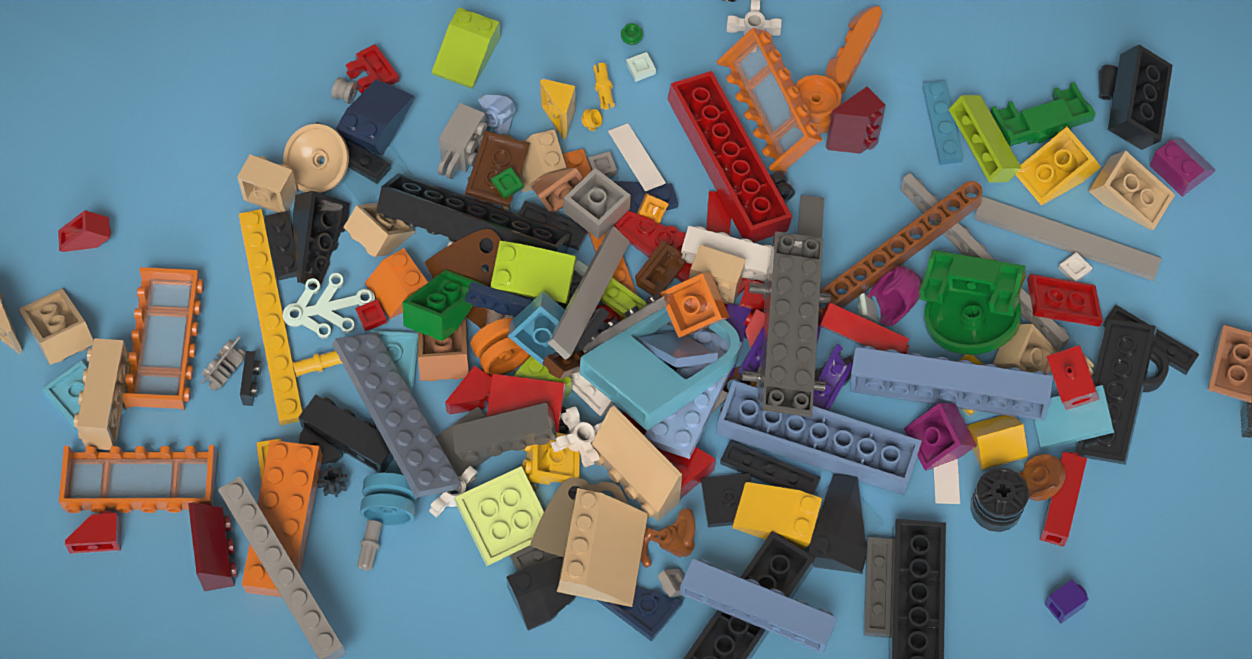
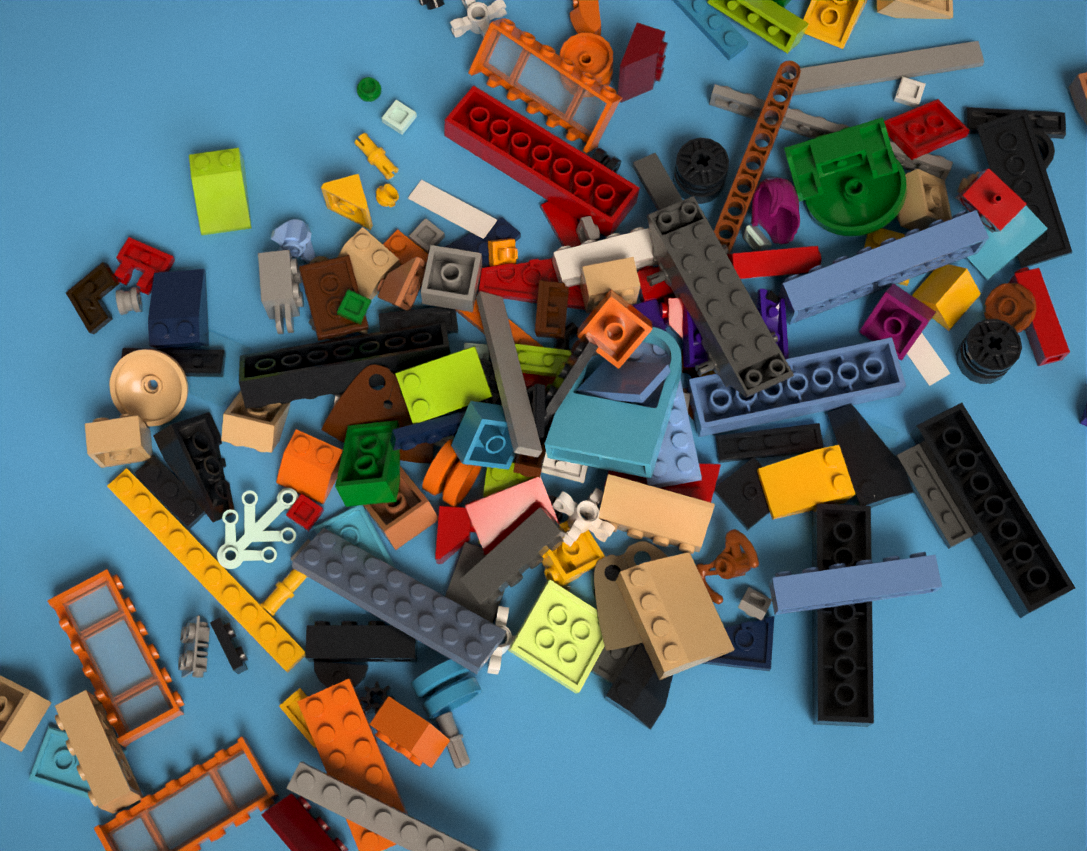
camera: 30 degrees left, 10 degrees up
(316, 70) = (87, 297): none -> dark brown tile
(337, 515) = (408, 733): none -> orange brick
(730, 226) = (587, 230): none -> light grey plate
(853, 232) = (692, 176): none -> black wheel

